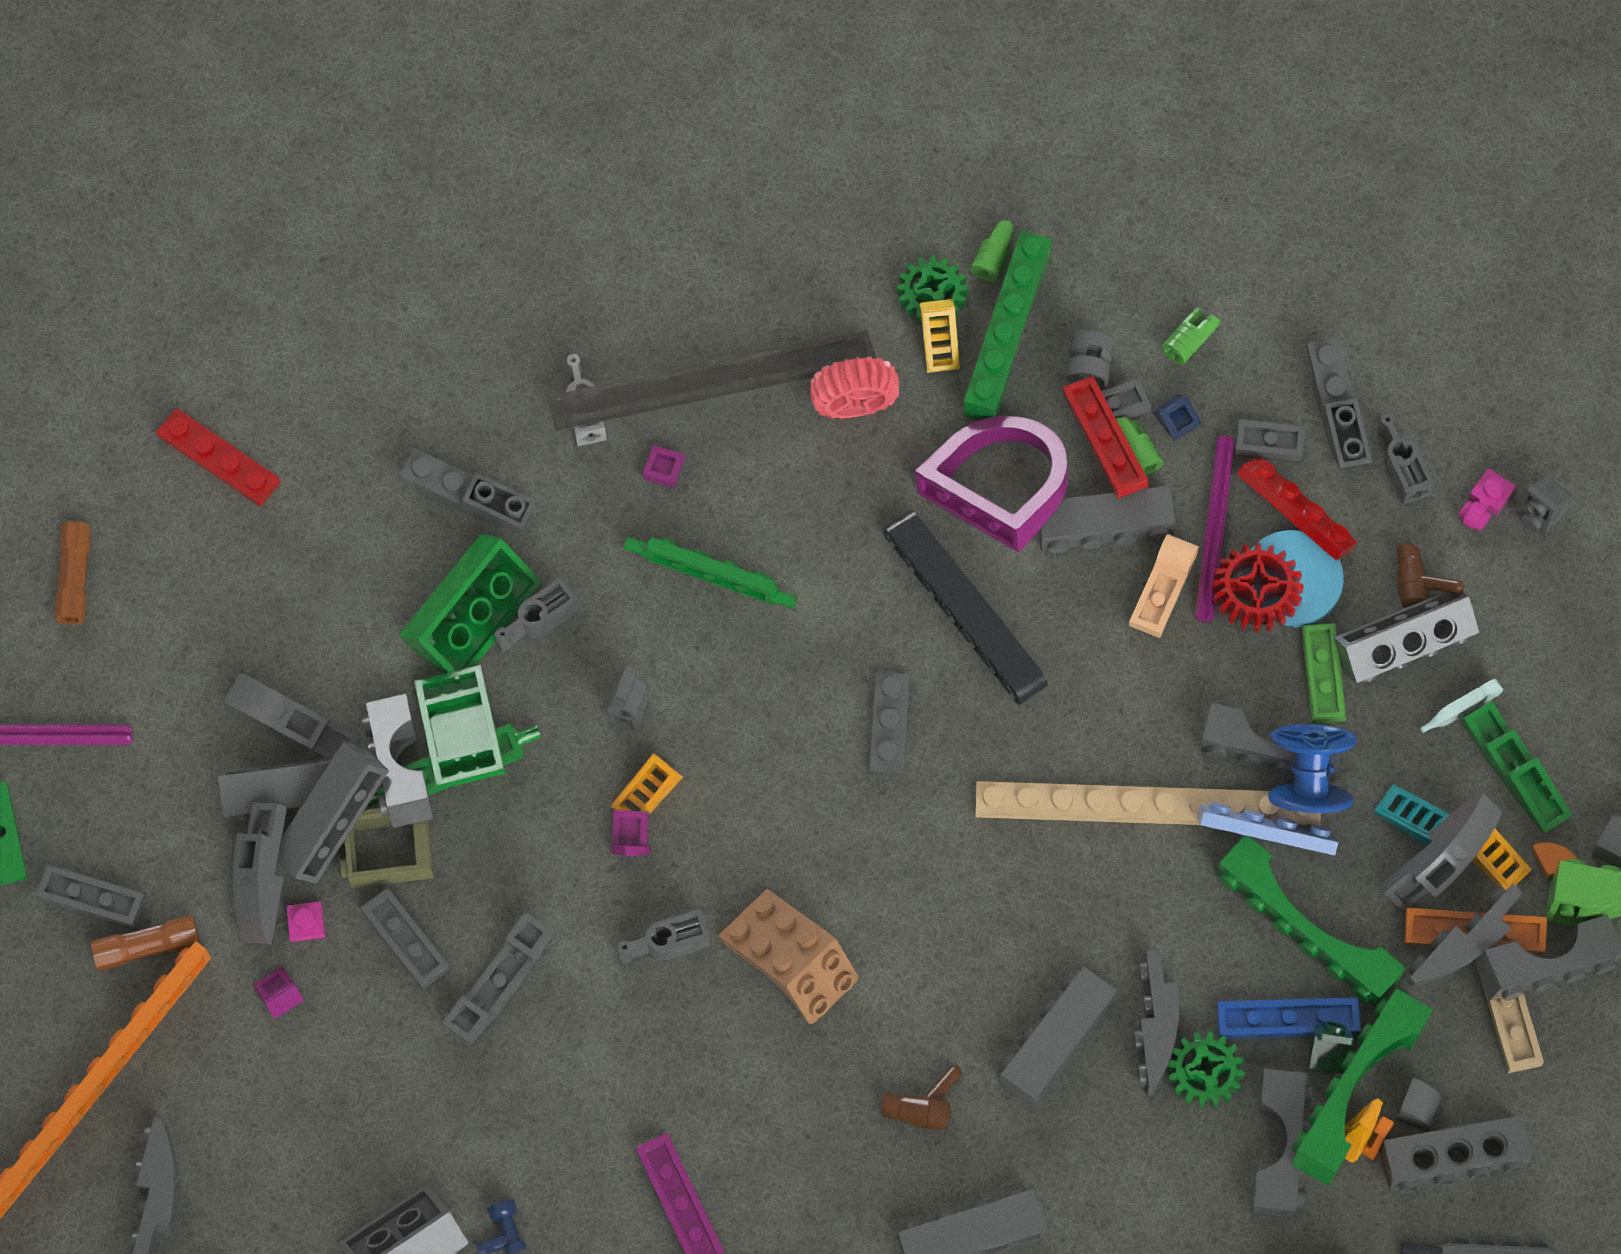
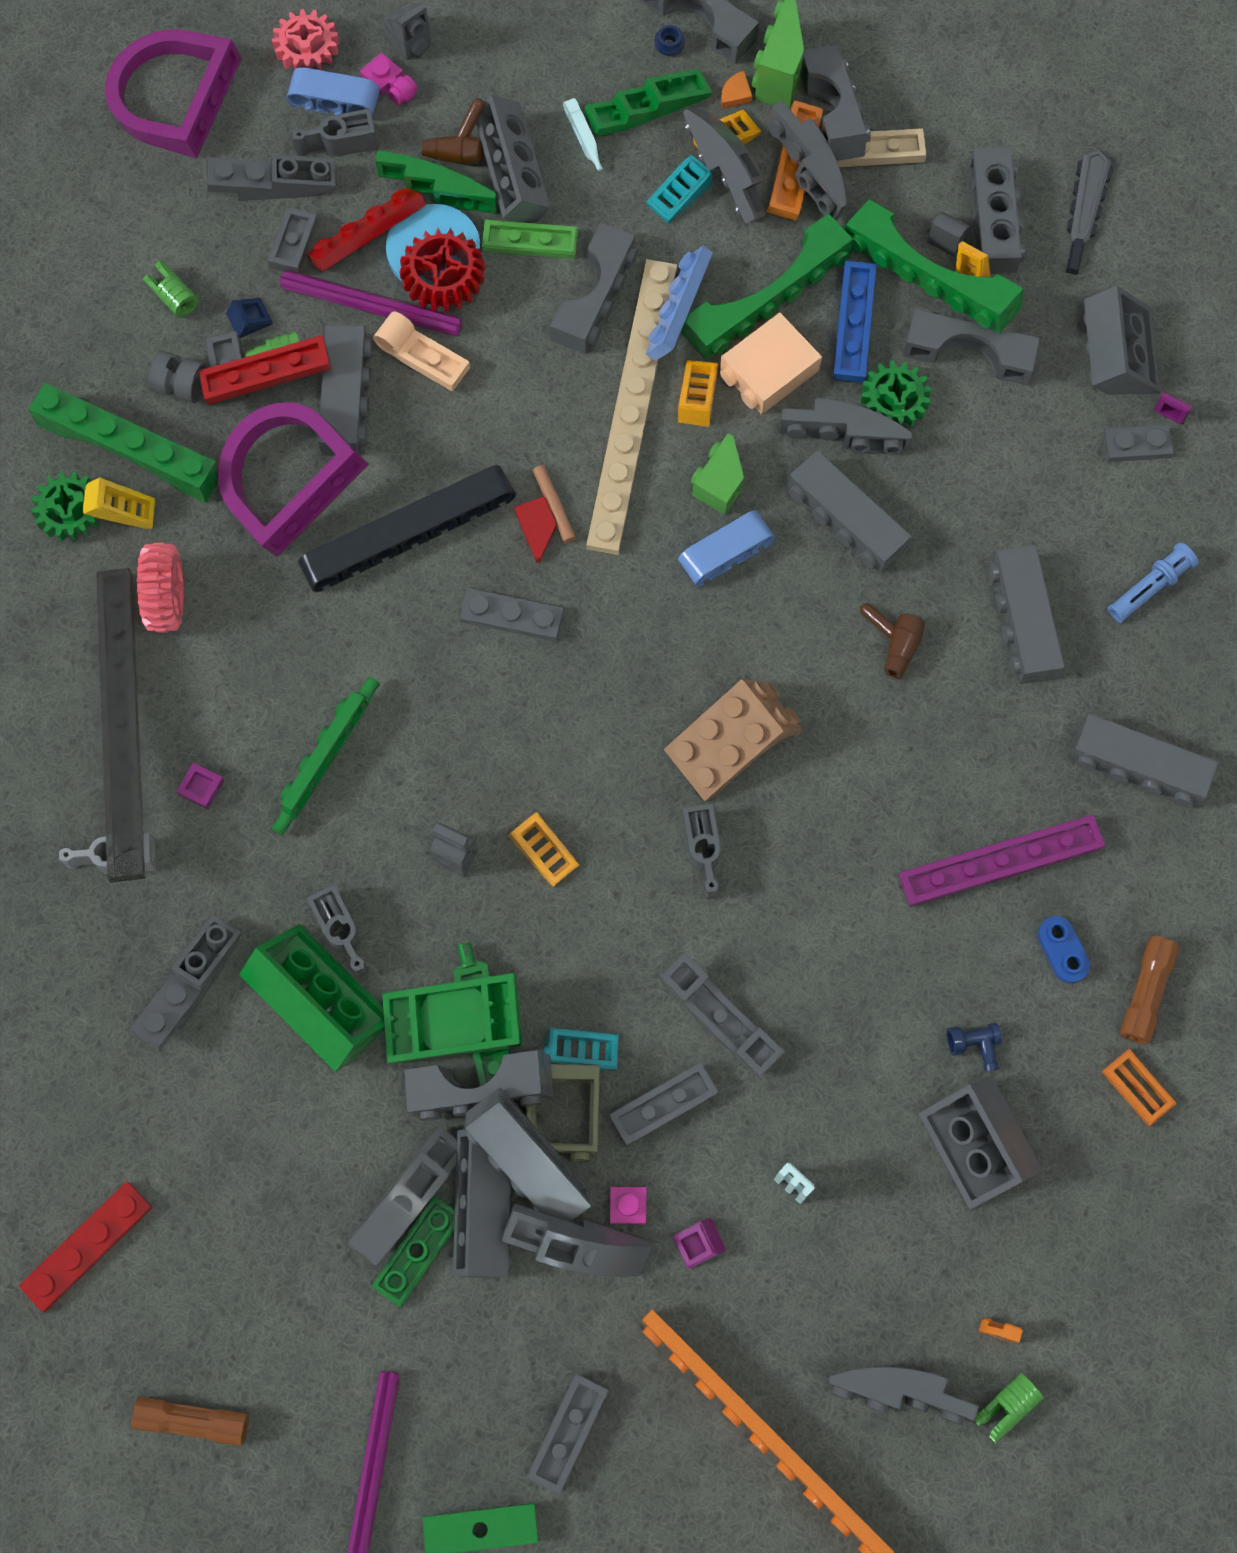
camera: 85 degrees left, 5 degrees up
(120, 949) = (629, 1382): dark orange axle -> none
(224, 731) = (404, 1271): none -> green tile
(334, 1065) = (794, 1183): none -> light aqua tile
(450, 828) = (581, 1037): none -> teal slope
(630, 833) = (589, 869): magenta tile -> none
(991, 731) = (536, 525): none -> red tile
(993, 252) = (40, 445): bright green hinge -> none
(995, 916) = (725, 547): none -> medium blue beam
(1019, 744) = (554, 504): none -> nougat piece
(1076, 903) = (721, 478): none -> bright green slope
(1148, 878) = (696, 411): none -> light orange slope
(1216, 934) = (769, 364): none -> light nougat brick
(1311, 768) = (651, 256): blue piece -> none
(1329, 1047) = (888, 289): dark green bracket -> none
(1363, 573) = (433, 179): none -> green slope
(1423, 326) = (192, 133): none -> magenta window
(1454, 447) = (331, 92): none -> medium blue beam
(1503, 419) = (305, 41): none -> coral gear
(1605, 770) = (672, 33): none -> dark blue plate

